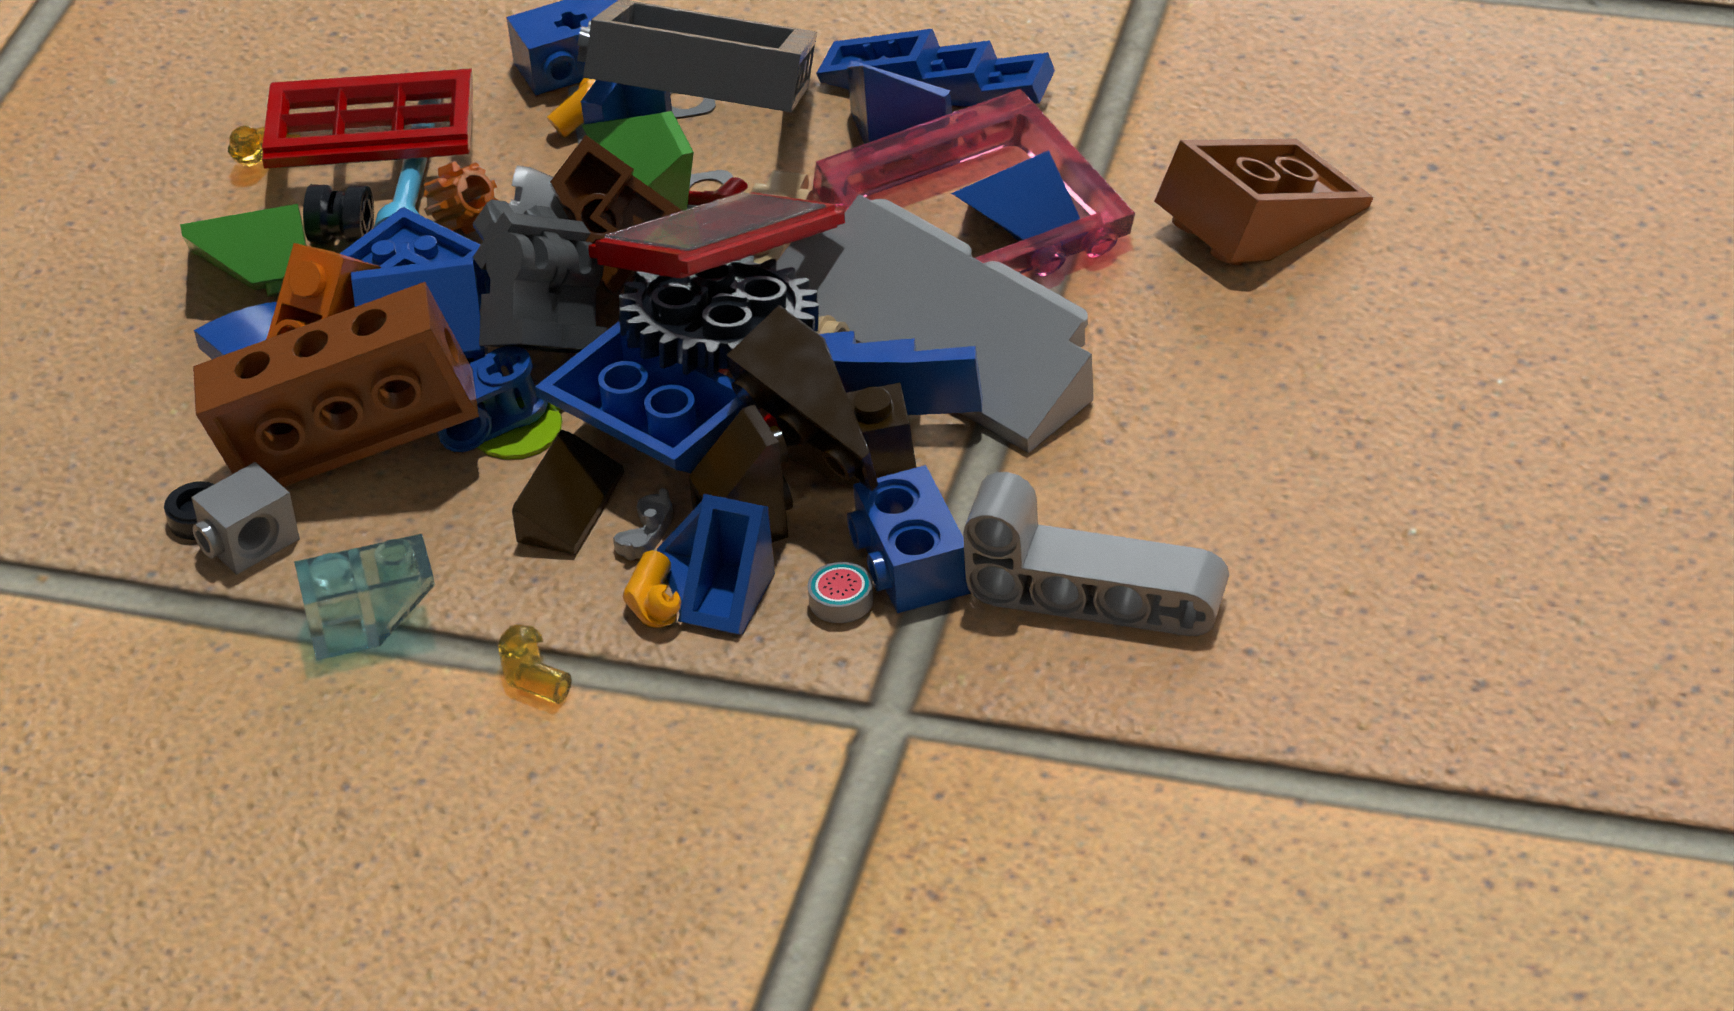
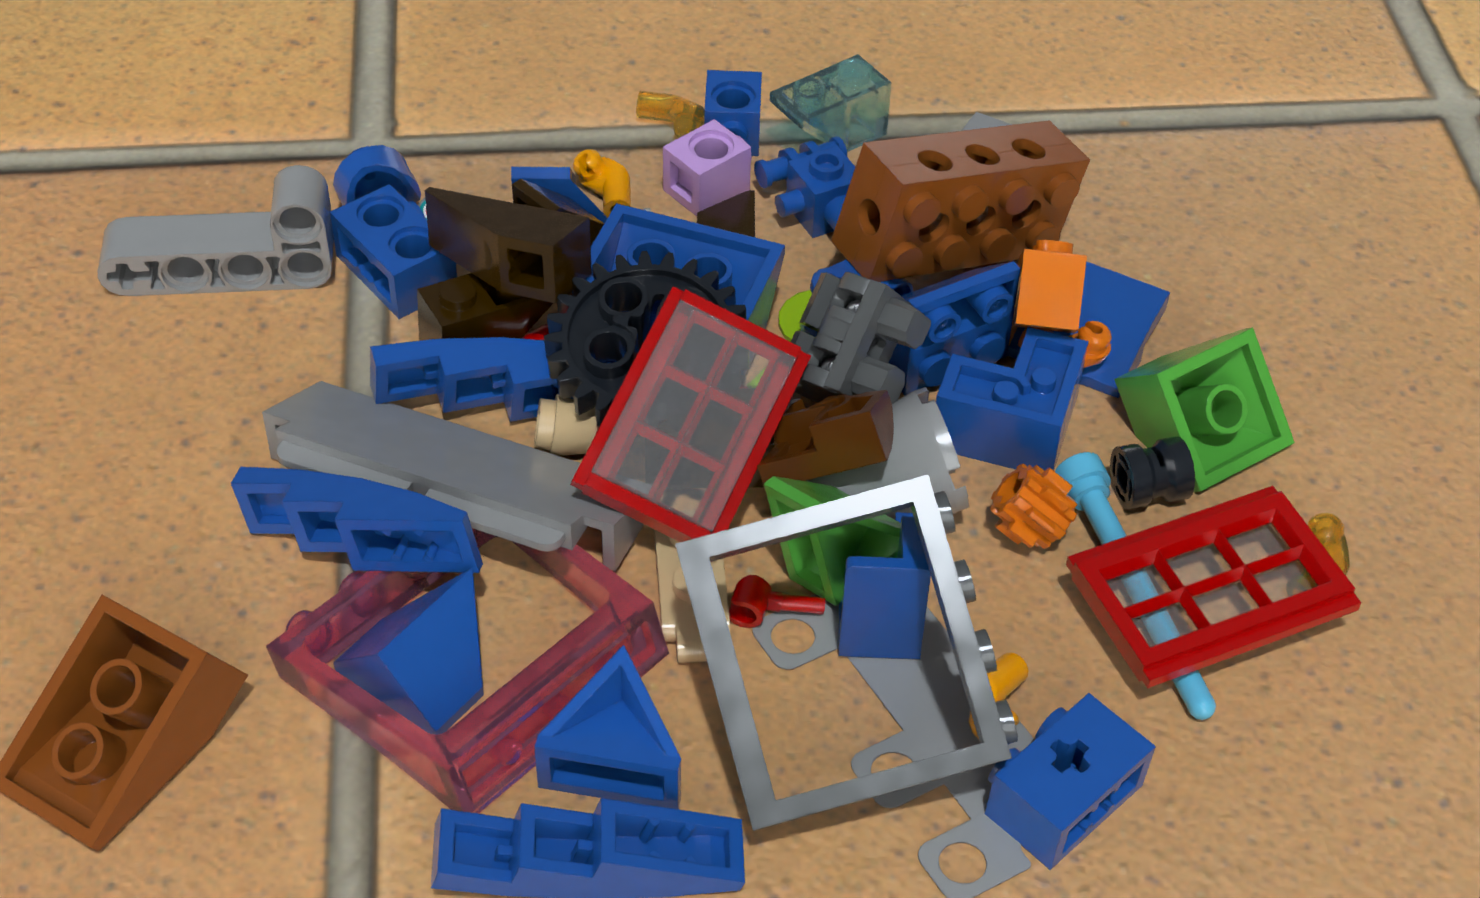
camera: 155 degrees right, 5 degrees up
(436, 506) = (815, 183): none -> blue piece
(466, 626) = (735, 102): none -> blue brick
(538, 567) = (706, 167): none -> lavender brick
(905, 604) = (372, 169): none -> blue piece
(1020, 238) = (368, 520): none -> blue slope

